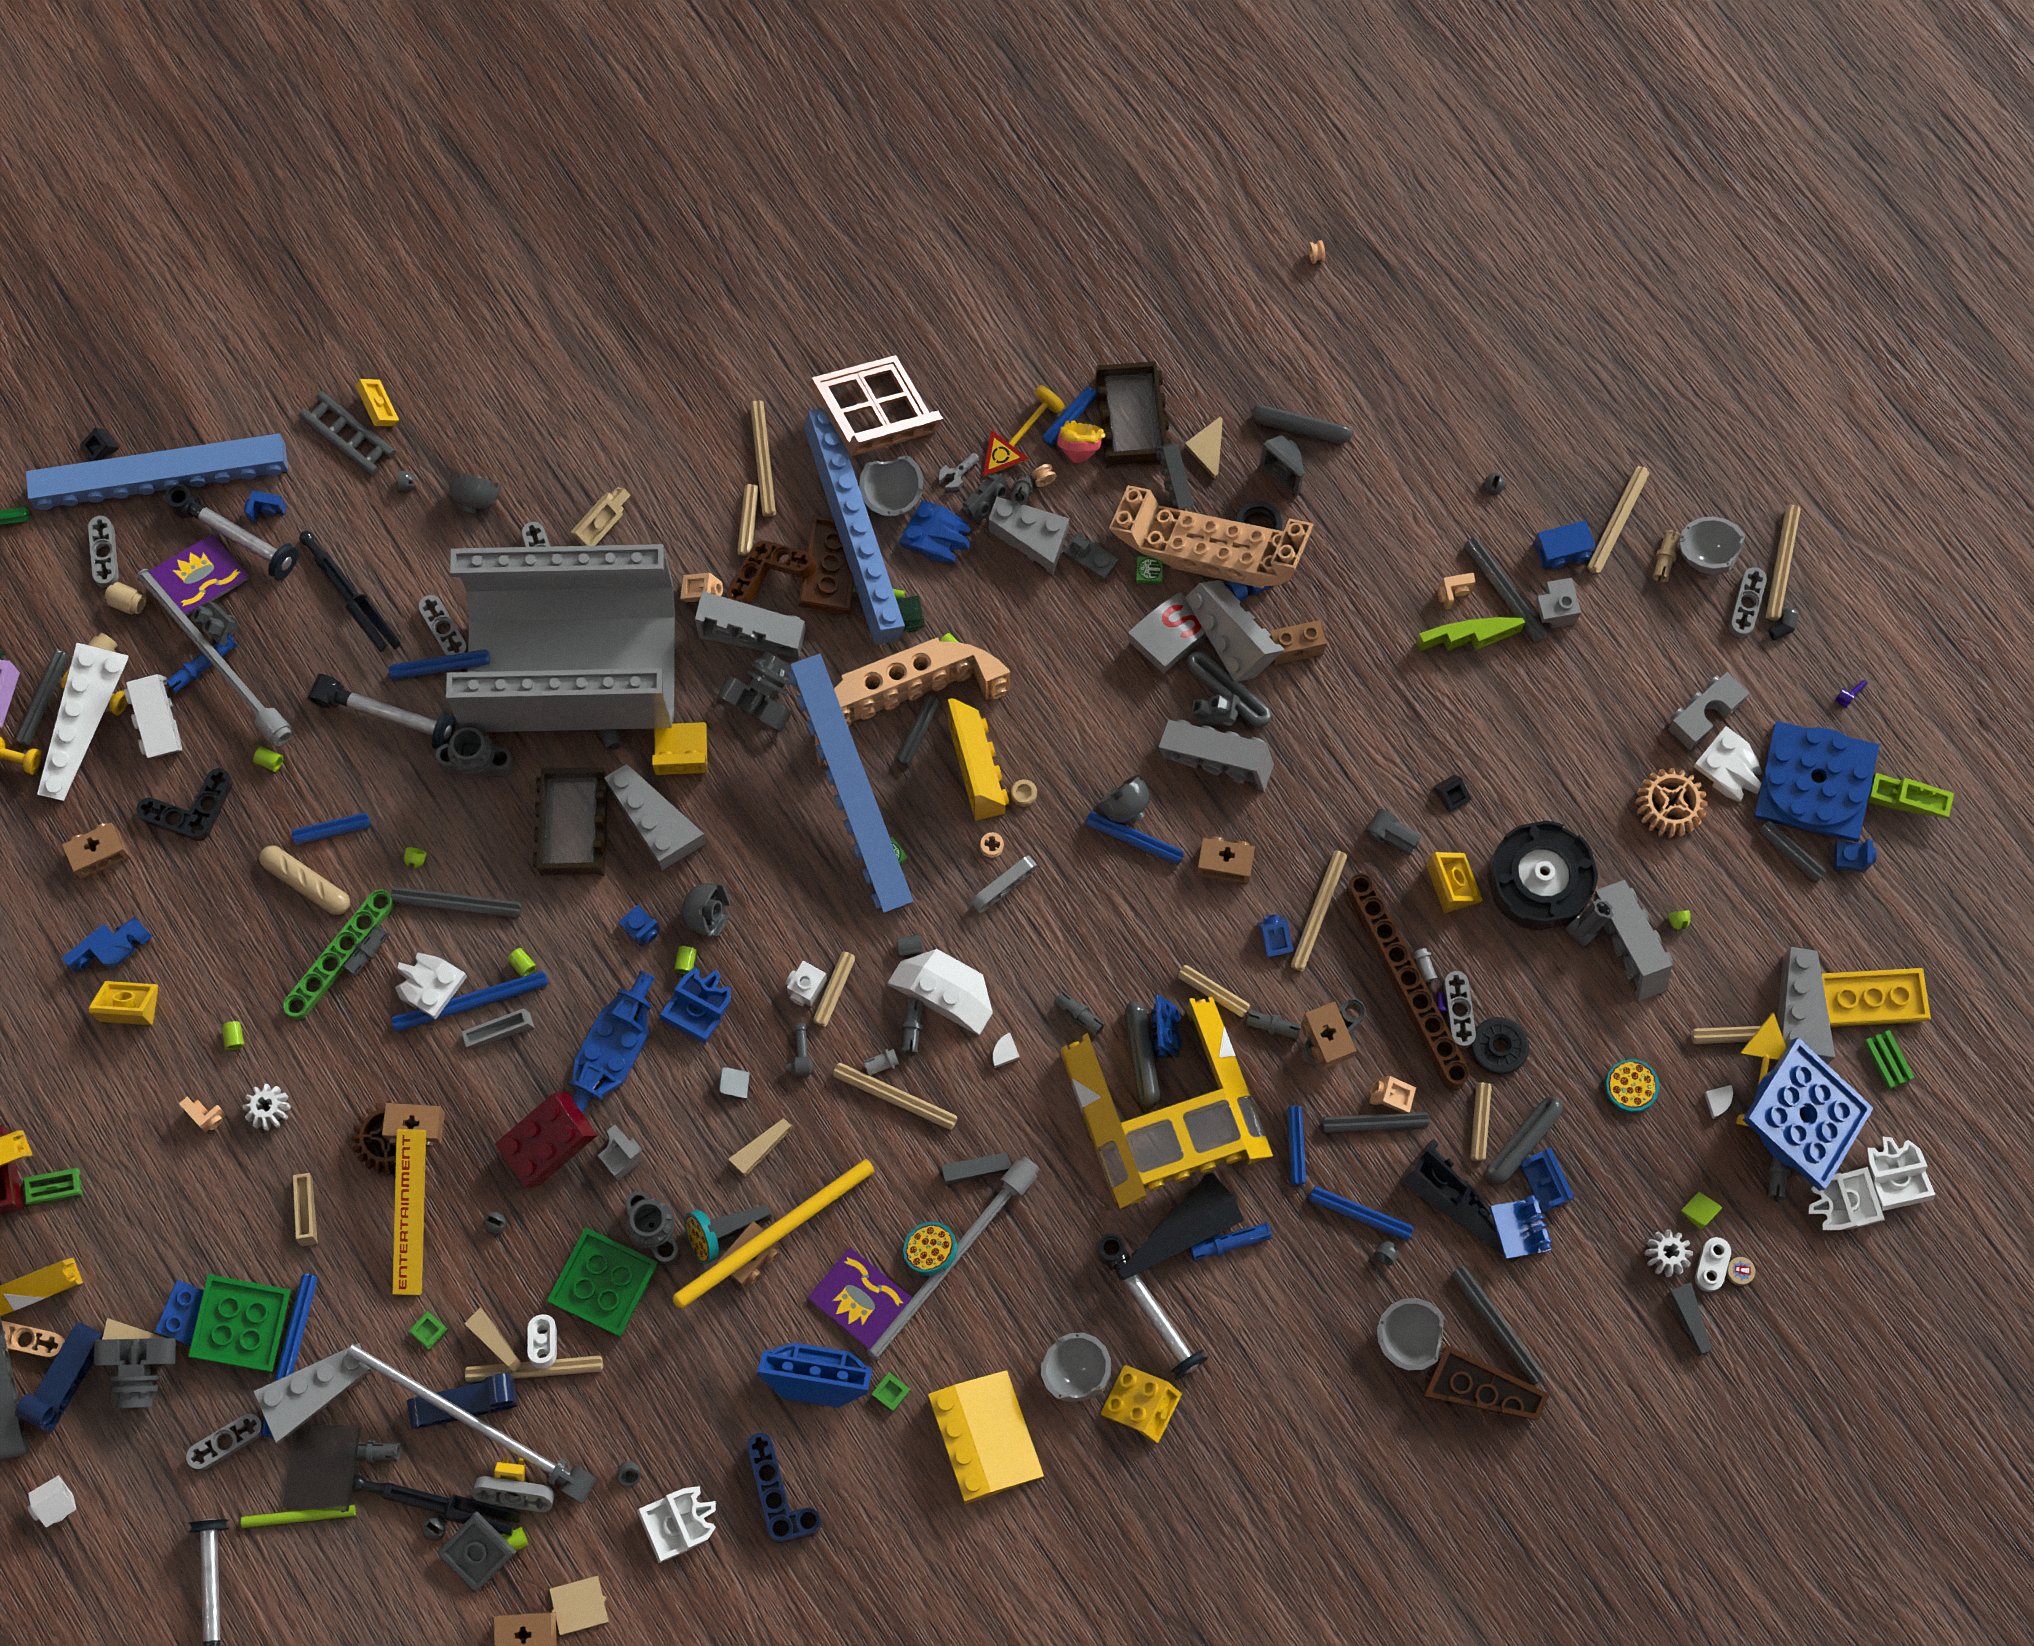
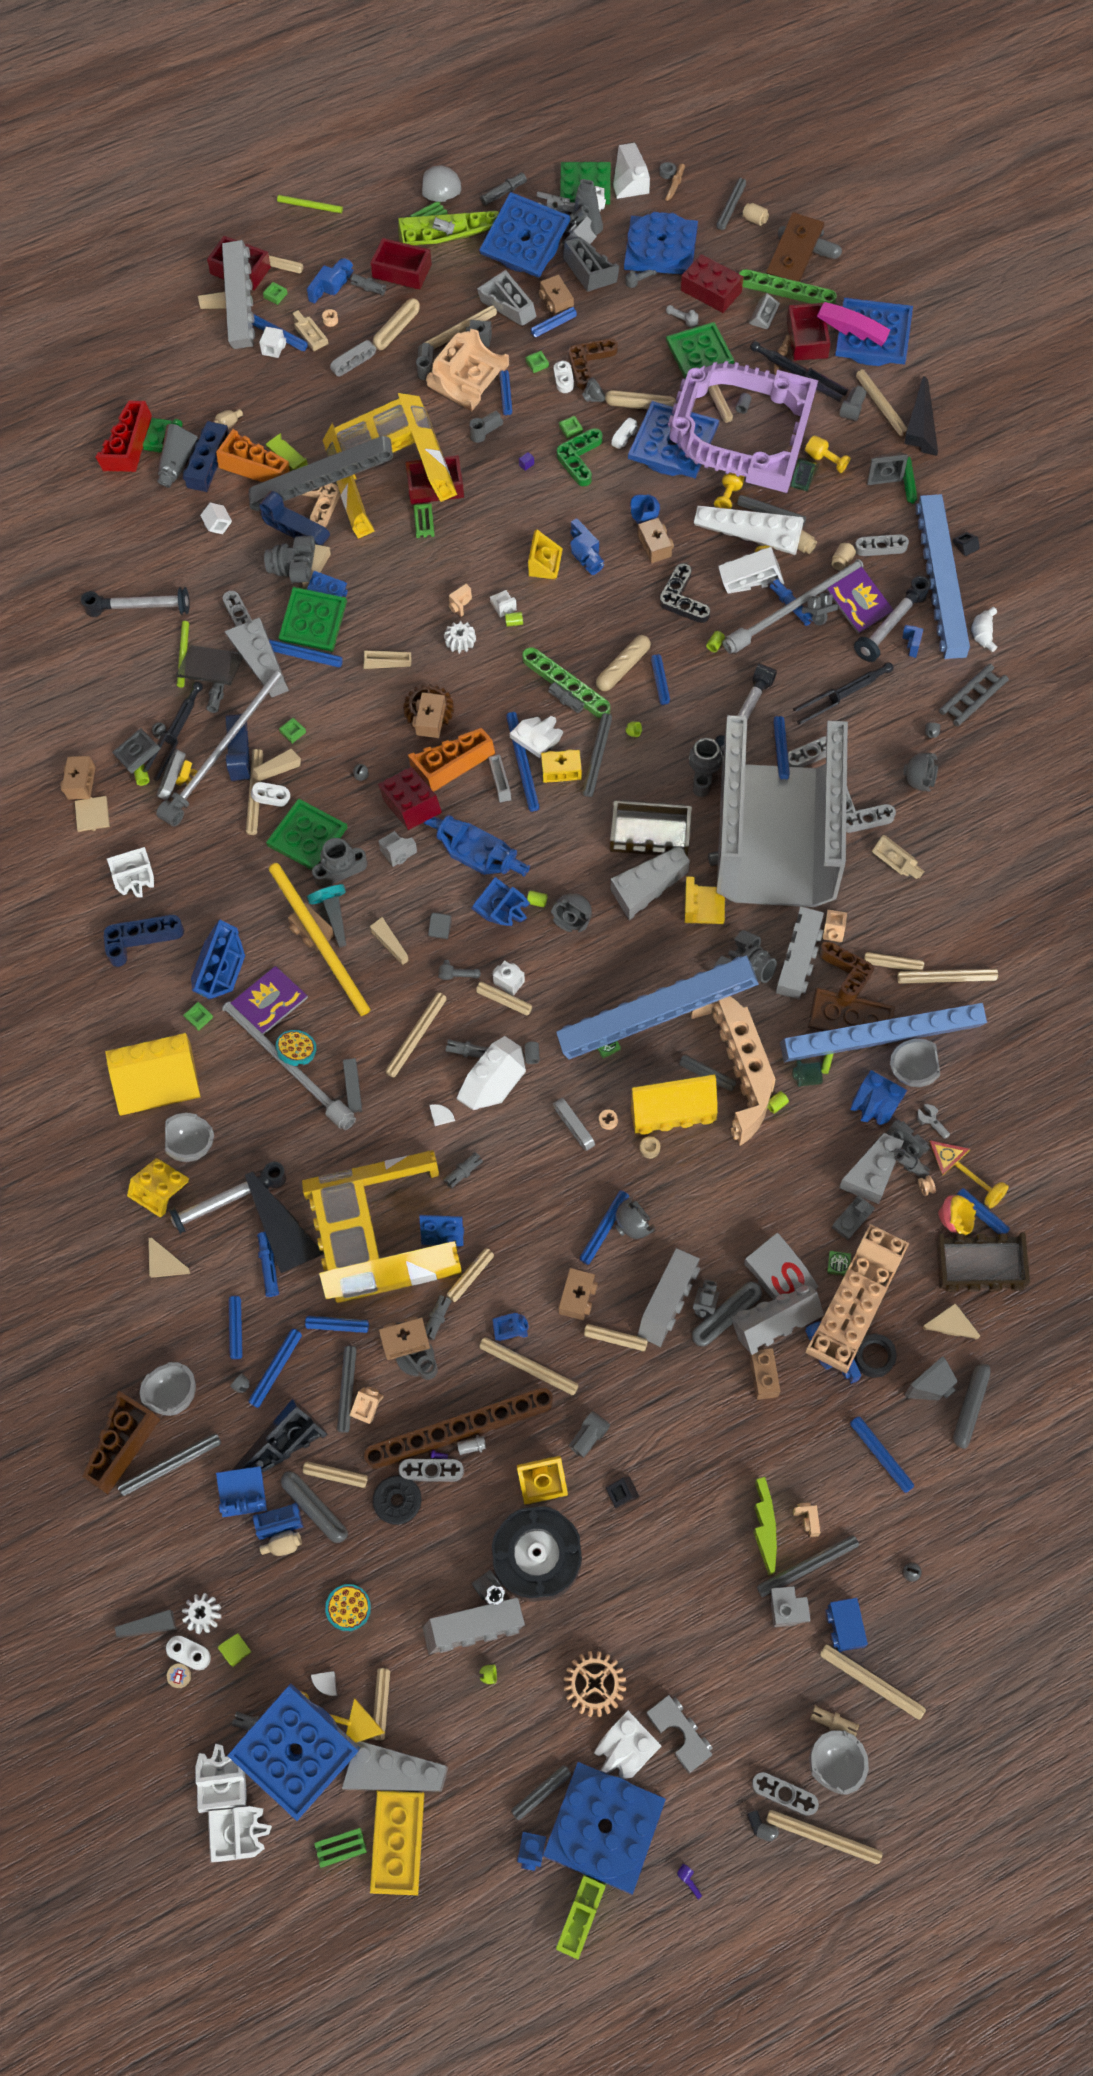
camera: 100 degrees right, 5 degrees down
(43, 866) = (644, 508): none -> blue hair
(204, 1053) = (503, 603): none -> white bracket
(241, 422) = (983, 628): none -> white piece
(377, 402) = (997, 712): yellow plate -> none
(409, 1211) = (370, 713): yellow tile -> none
(480, 1101) = (452, 758): none -> orange wedge
(485, 959) = (561, 766): none -> yellow brick
(521, 962) = (547, 793): lime hinge -> none
(632, 1479) = (172, 845): dark grey hinge -> none
(640, 926) = (567, 871): blue bracket -> none
(881, 1062) = (443, 1028): light grey pin -> none
(887, 434) = (963, 1065): window -> none
(1142, 1054) = (412, 1215): dark grey piece -> none
(1175, 476) = (919, 1285): dark grey piece -> none
(1242, 1379) = (163, 1263): none -> tan tile
(1271, 814) = (615, 1337): none -> tan axle
(1316, 1271) = (235, 1327): none -> blue axle
(1369, 517) = (882, 1454): none -> blue axle
(1573, 1172) = (282, 1543): none -> tan plant

